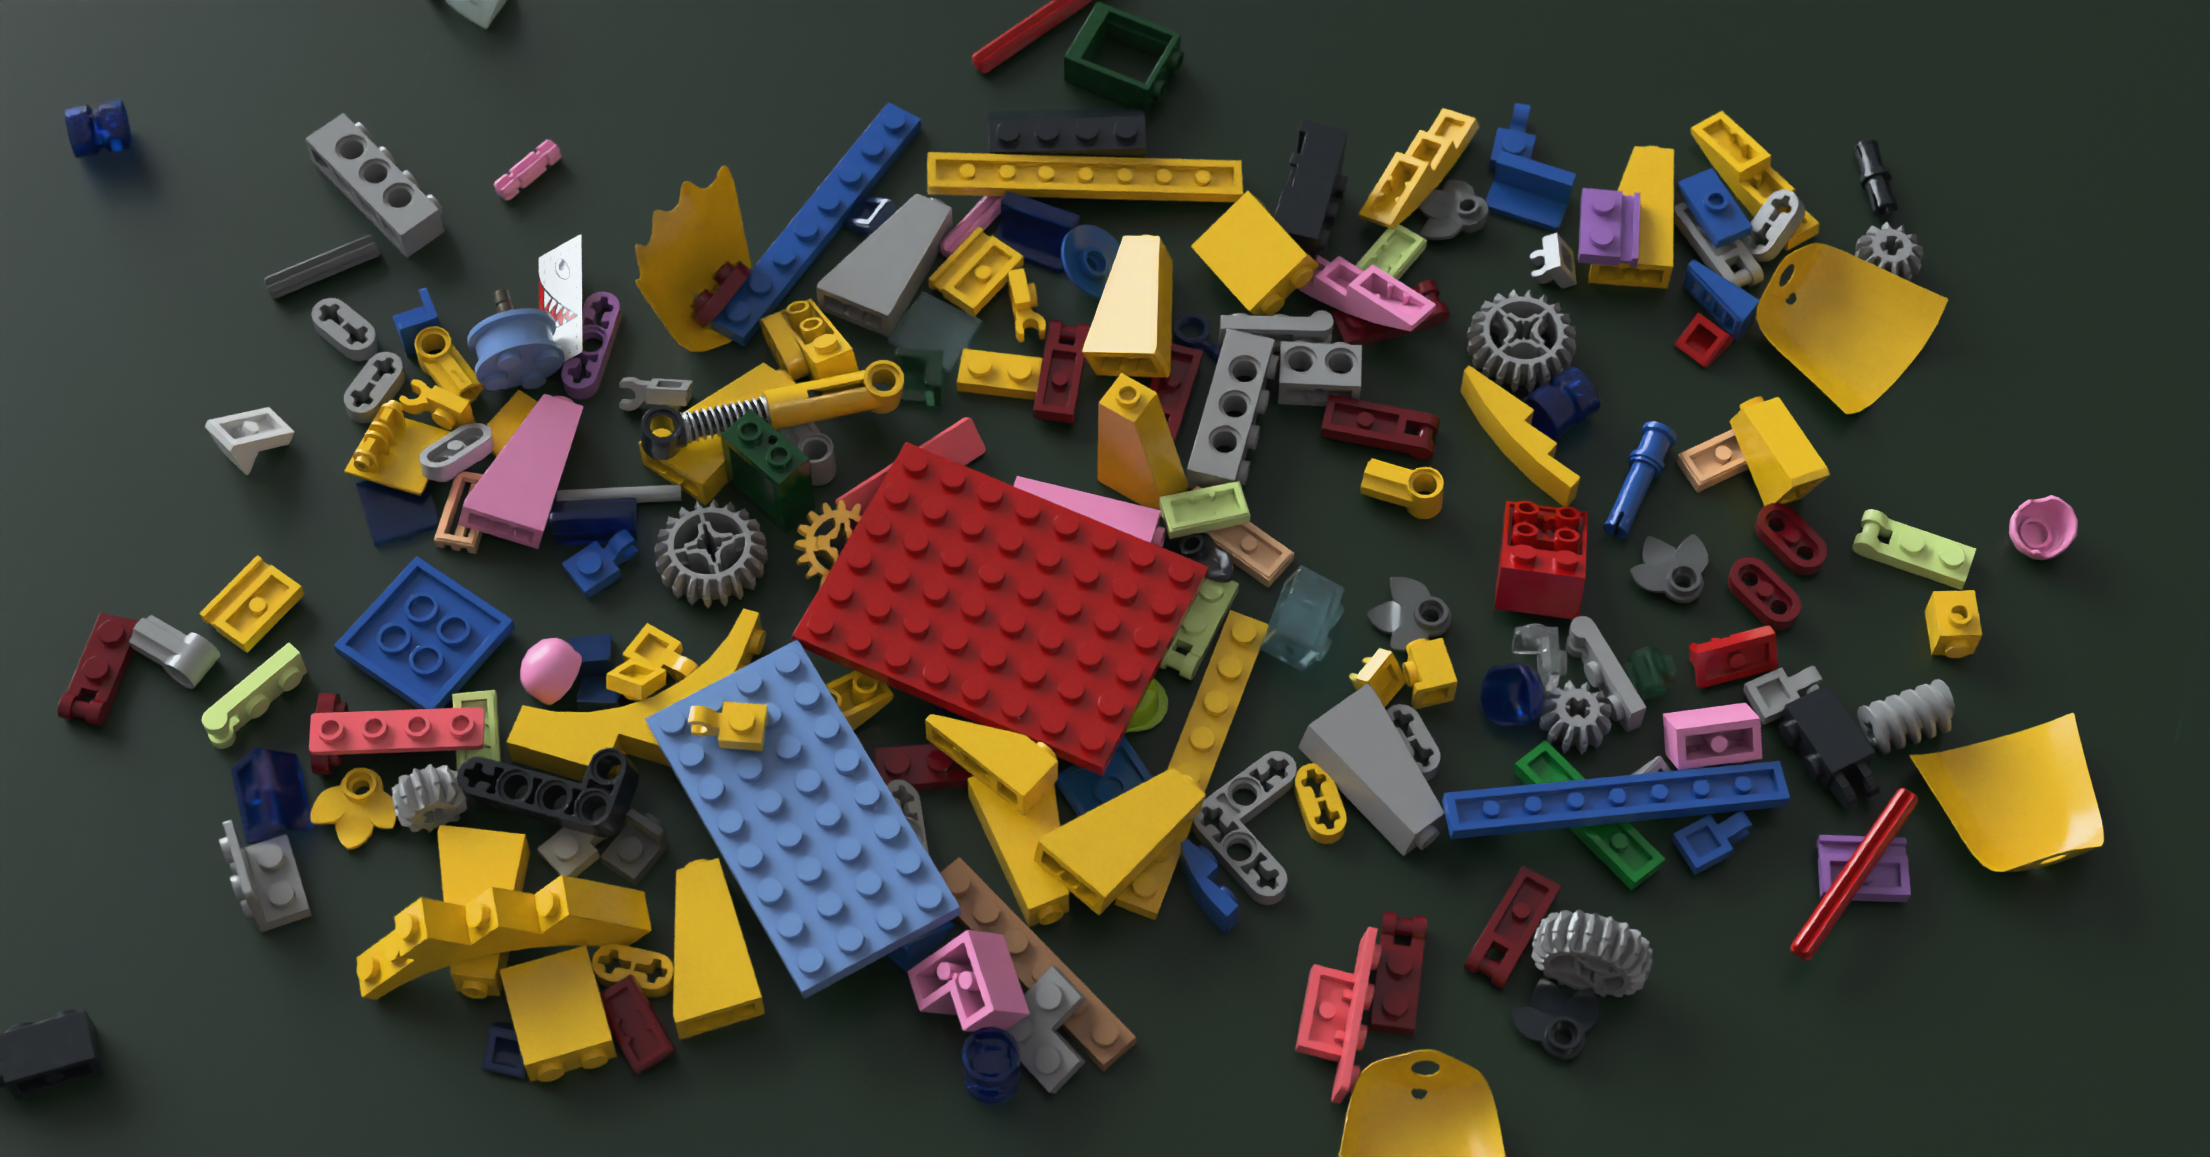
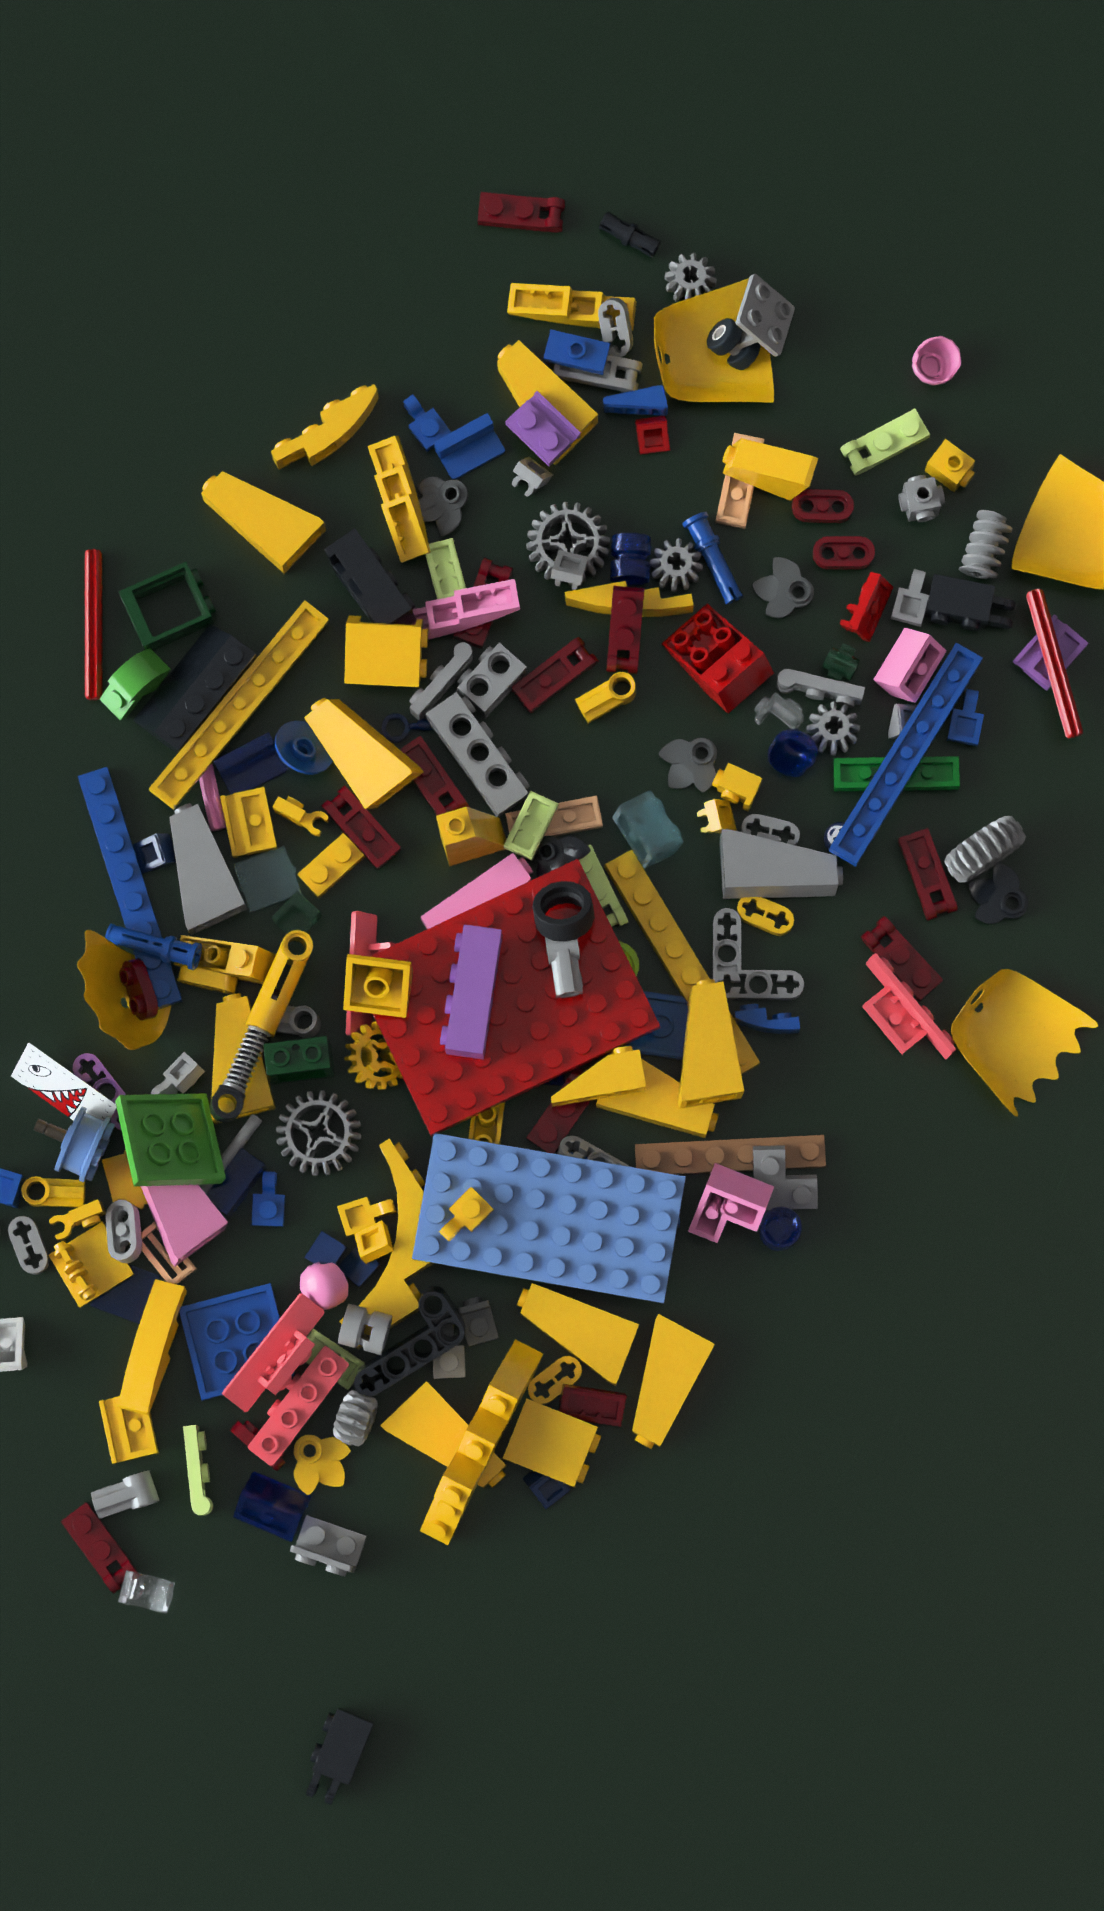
camera: 45 degrees left, 20 degrees up
(81, 739) = (146, 1591): none -> clear bracket
(341, 562) = (151, 1347): none -> yellow slope
(436, 668) = (277, 1355): none -> coral bracket
(529, 725) = (353, 1329): none -> light grey wheel
(581, 415) = (170, 1139): none -> bright green plate
(725, 1080) = (669, 1374): none -> yellow slope
(780, 280) = (168, 949): none -> blue pin
(905, 467) = (377, 985): none -> yellow slope
(975, 558) = (473, 991): none -> medium lavender brick
(1026, 74) = (132, 681): none -> bright green brick
(1090, 614) = (565, 967): none -> light grey piece
(1129, 591) = (567, 928): none -> black tyre
(1286, 74) = (265, 521): none -> yellow slope
(1435, 73) = (339, 424): none -> yellow slope
(1486, 447) = (625, 628): none -> dark red plate
(1494, 345) = (569, 568): none -> light grey tile
(1596, 450) = (687, 560): none -> light grey gear
(1798, 76) = (520, 212): none -> dark red plate
(1891, 619) = (919, 508): none -> light grey brick
(1917, 344) = (760, 321): none -> light grey plate

